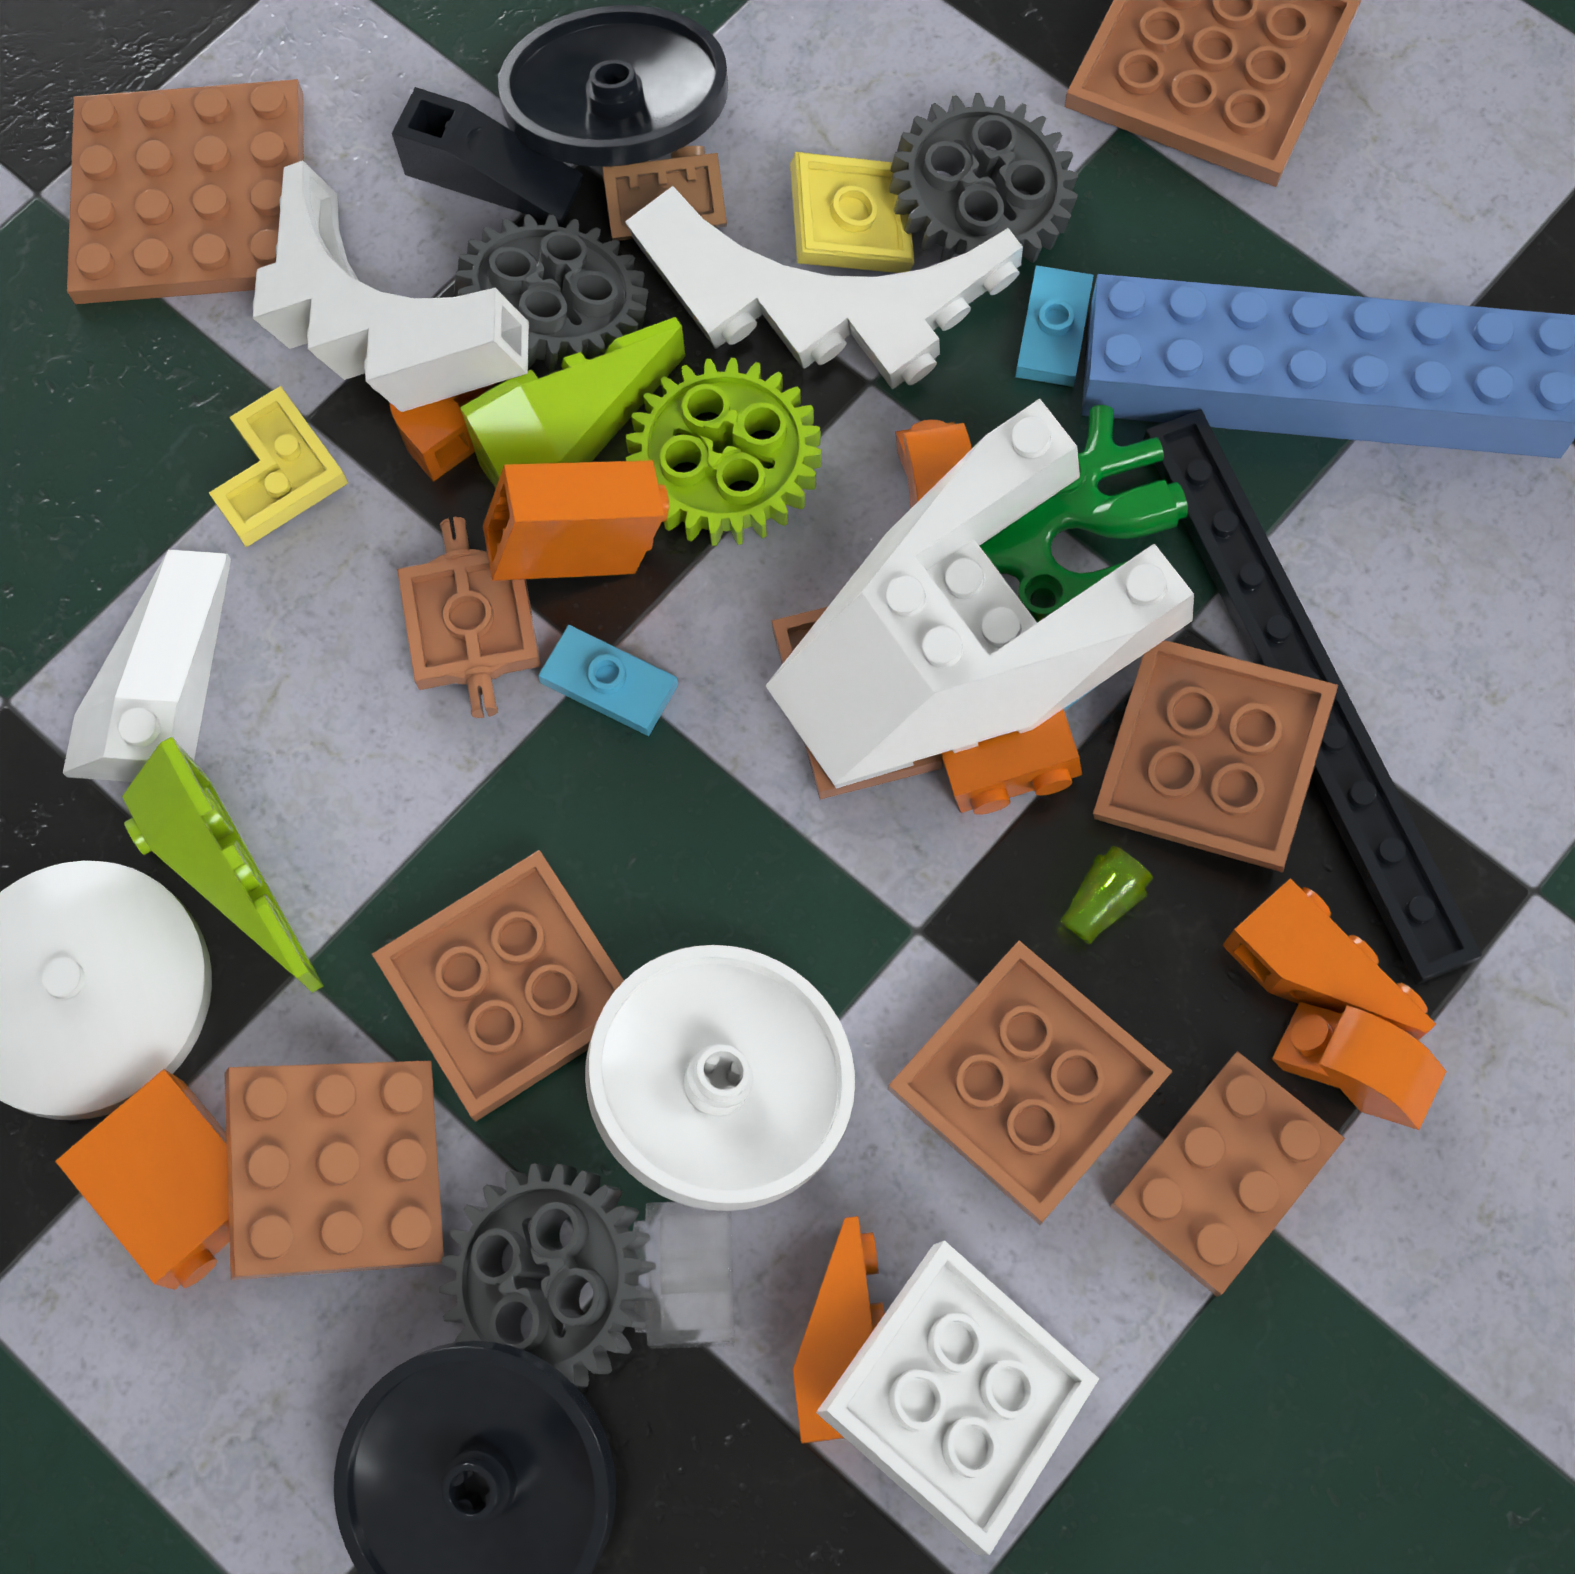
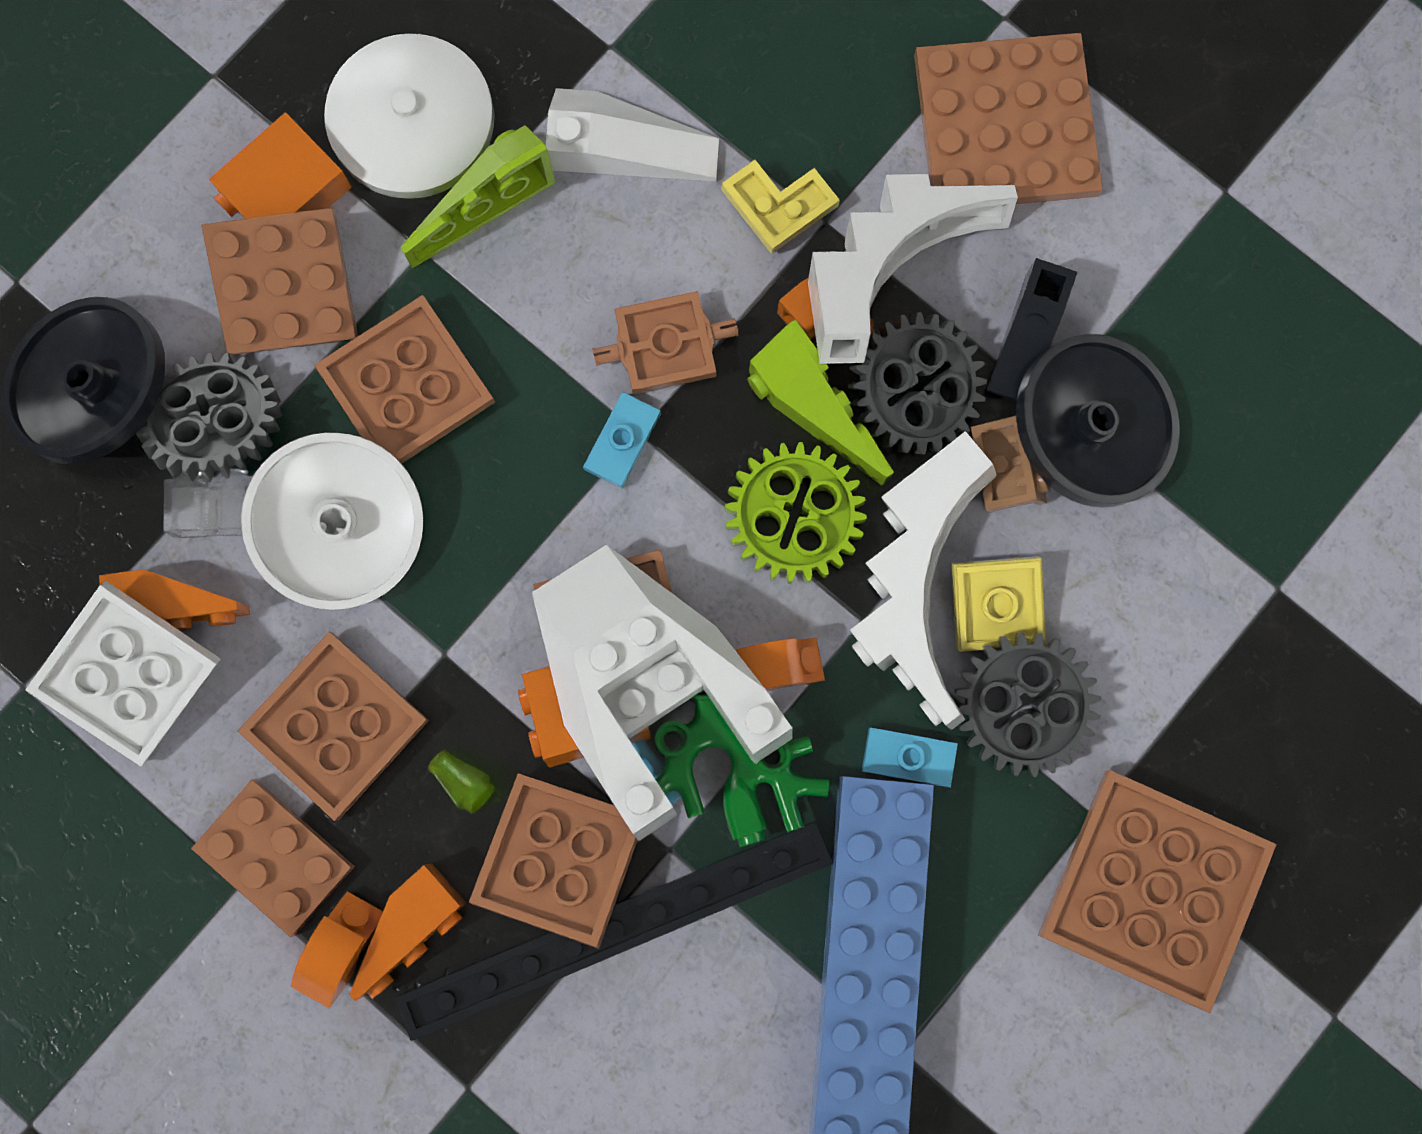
camera: 85 degrees right, 10 degrees up
(573, 519) = (722, 407): orange brick -> none

